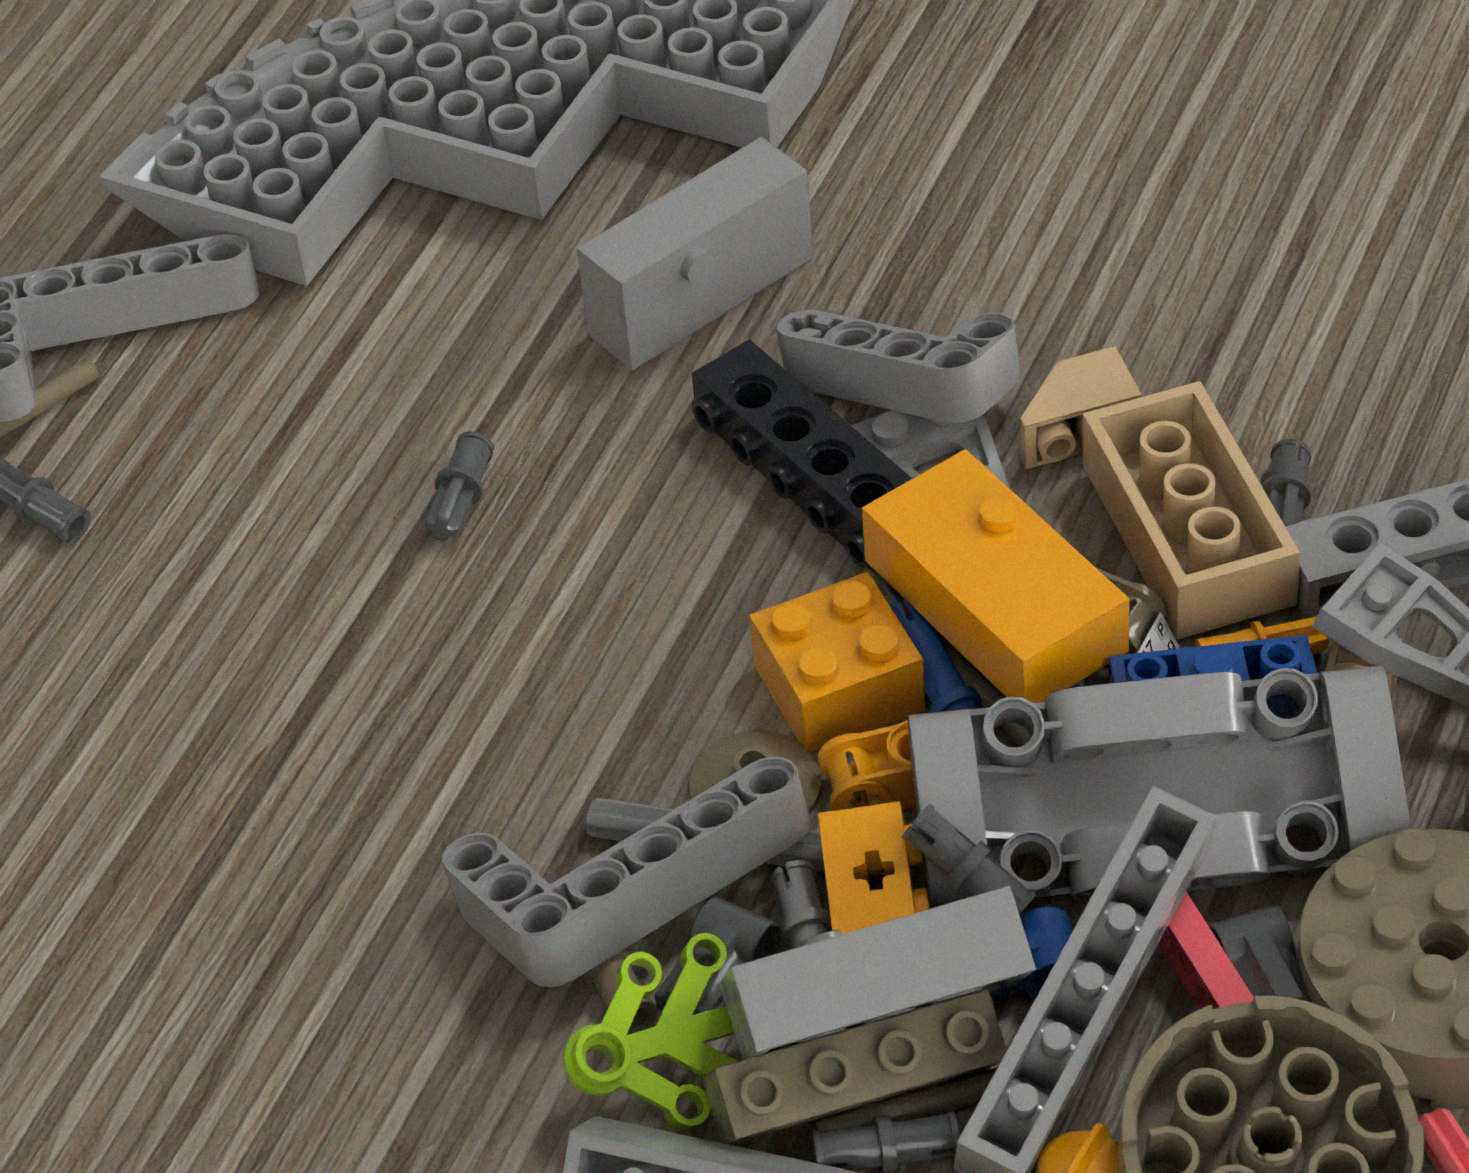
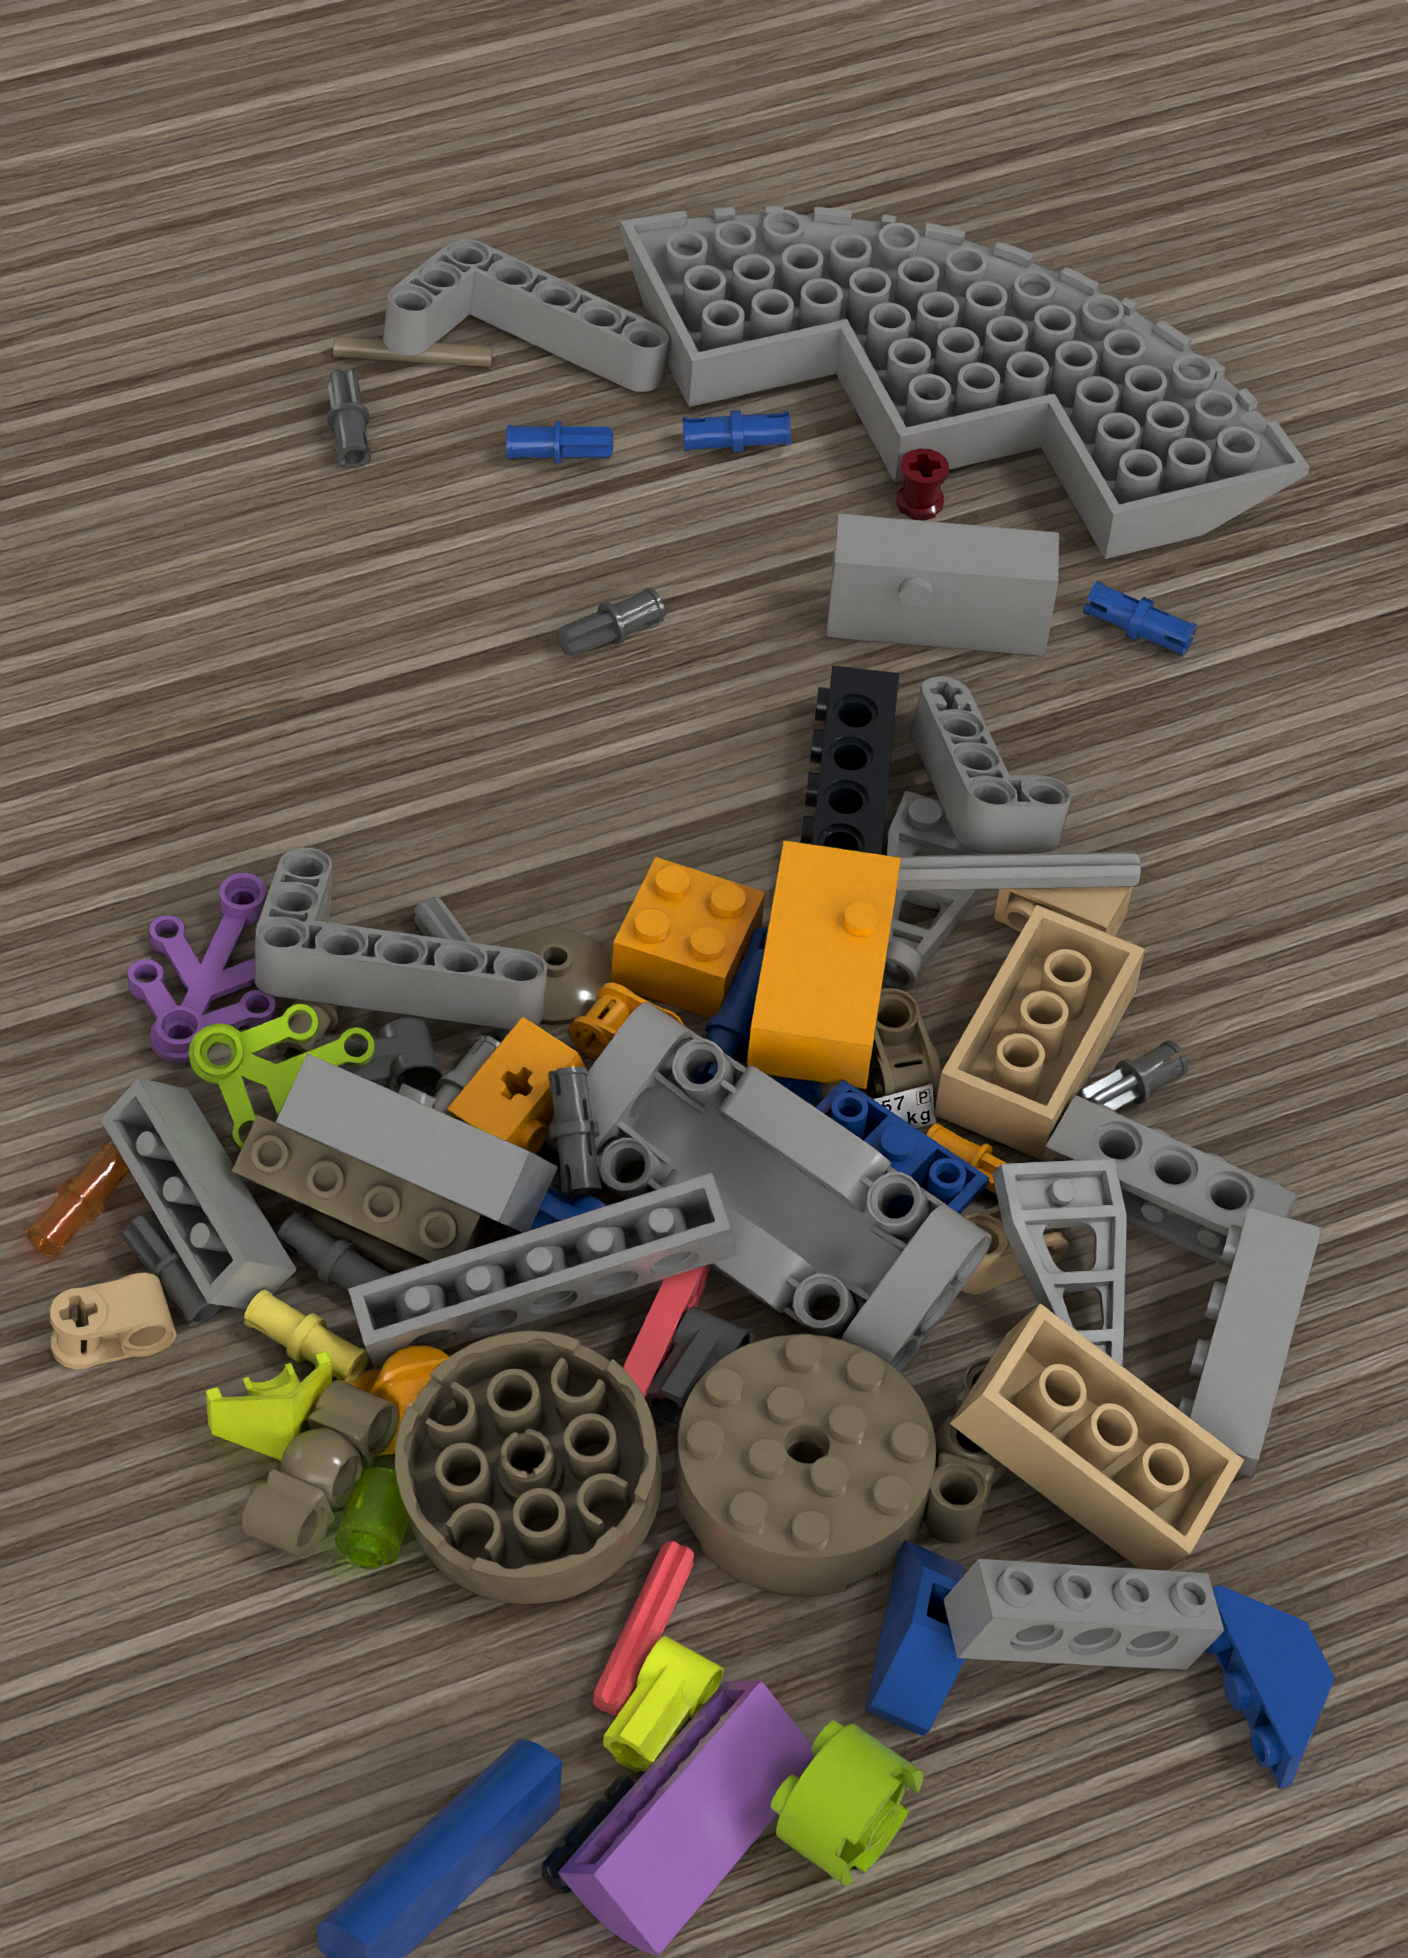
camera: 35 degrees right, 5 degrees up
(238, 386) = (559, 442): none -> blue axle
(373, 272) = (736, 431): none -> blue pin
(478, 1025) = (204, 980): none -> medium lavender plant
(573, 207) = (922, 475): none -> dark red bush
(860, 173) = (1140, 618): none -> blue pin
(1043, 394) = (1018, 871): none -> light grey axle

